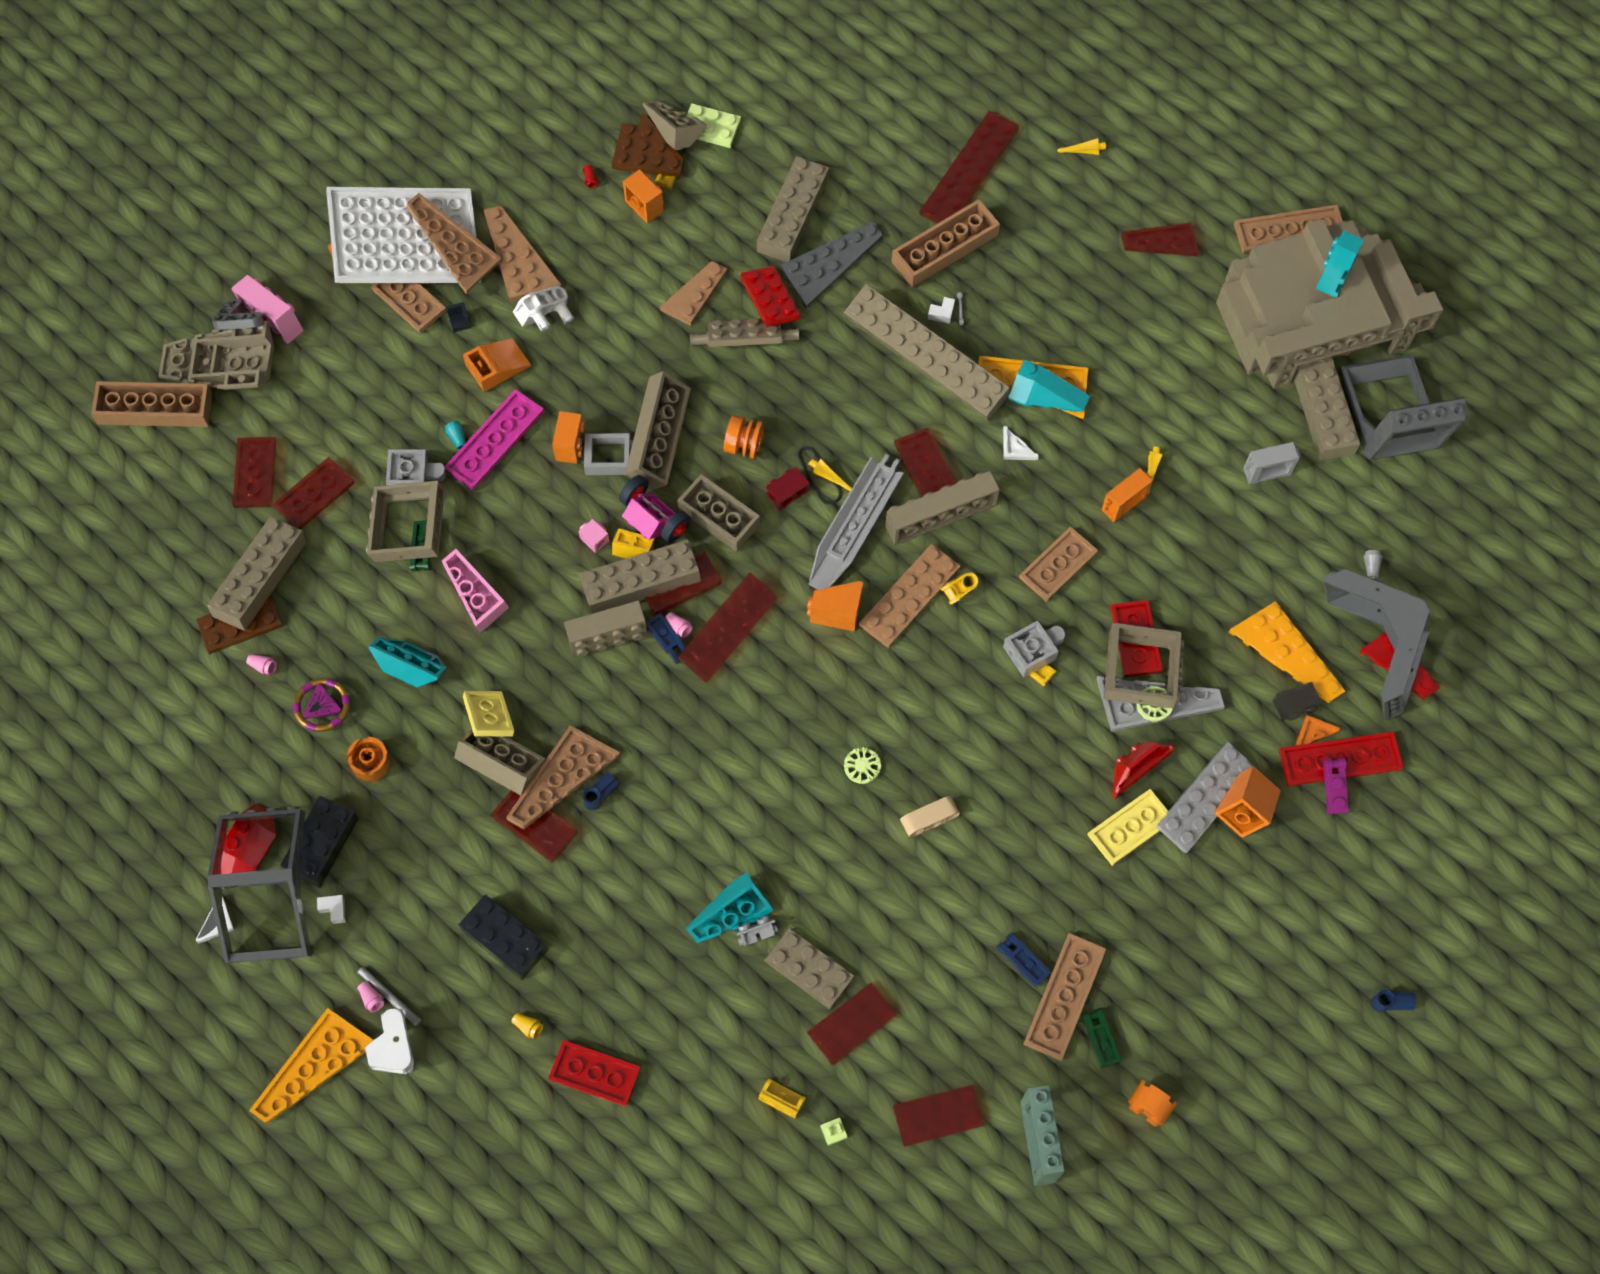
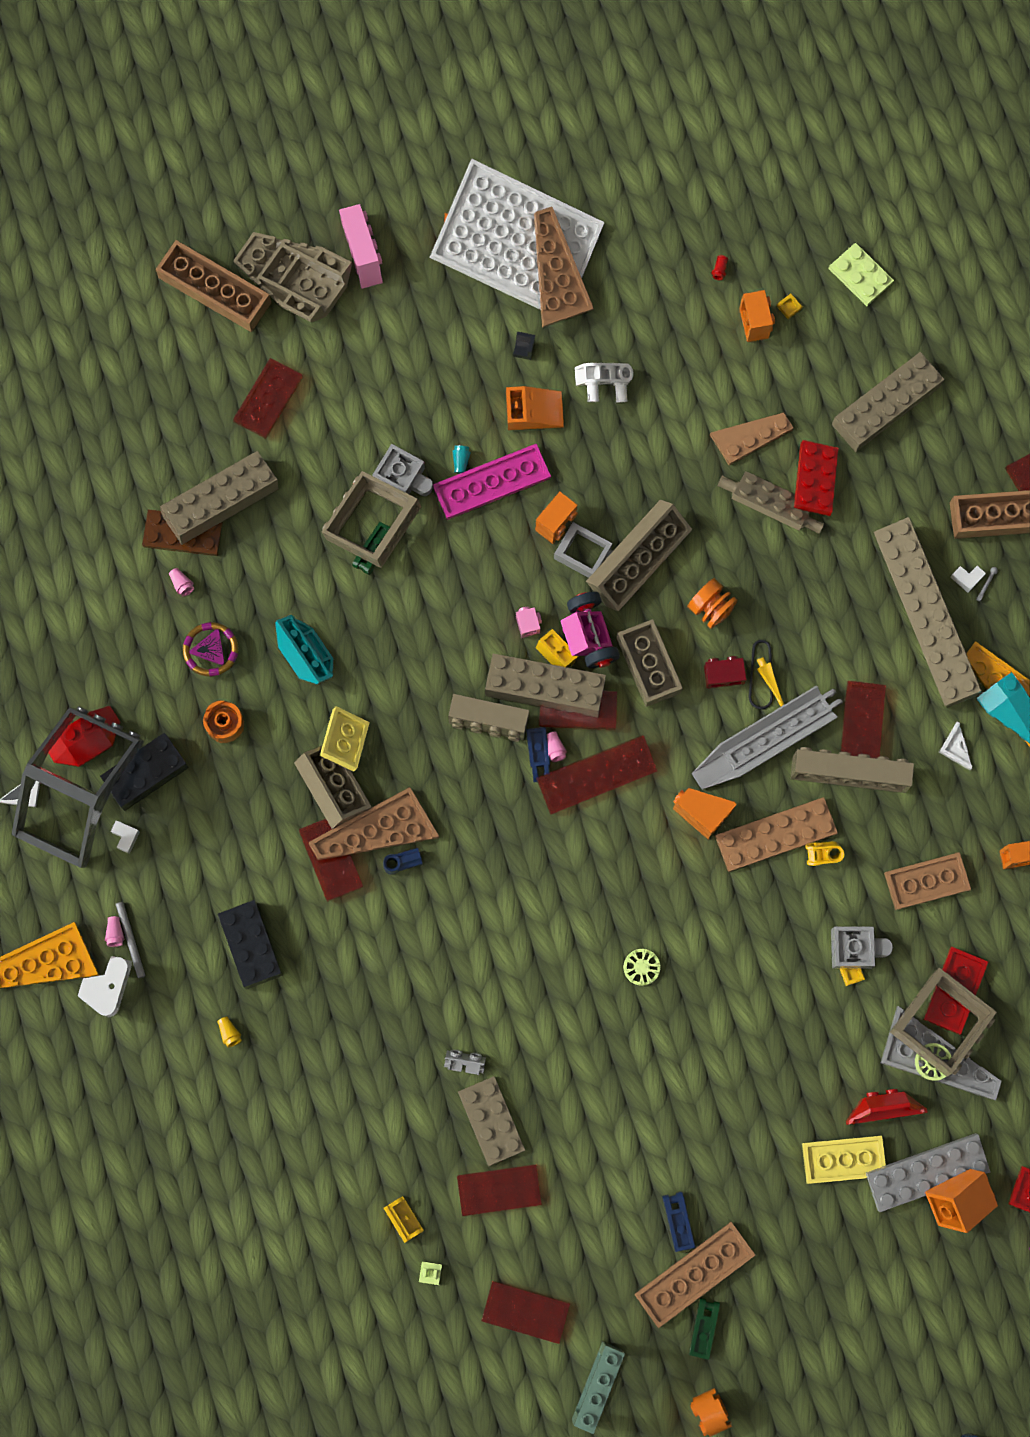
camera: 30 degrees right, 10 degrees up
(231, 317) = (320, 241): dark grey beam -> none
(313, 493) = (307, 447): clear red plate -> none
(411, 303) = (491, 310): medium nougat plate -> none
(477, 595) = (396, 624): bright pink wedge -> none
(520, 264) = (608, 324): medium nougat wing -> none
(594, 1073) = (260, 1106): red plate -> none
(646, 150) = (786, 268): reddish brown wing -> none
(674, 126) = (826, 259): dark tan wedge -> none
(733, 907) = (461, 1030): teal wedge -> none
(823, 266) = (881, 473): dark grey wing -> none
(929, 816) = (673, 1048): tan beam -> none

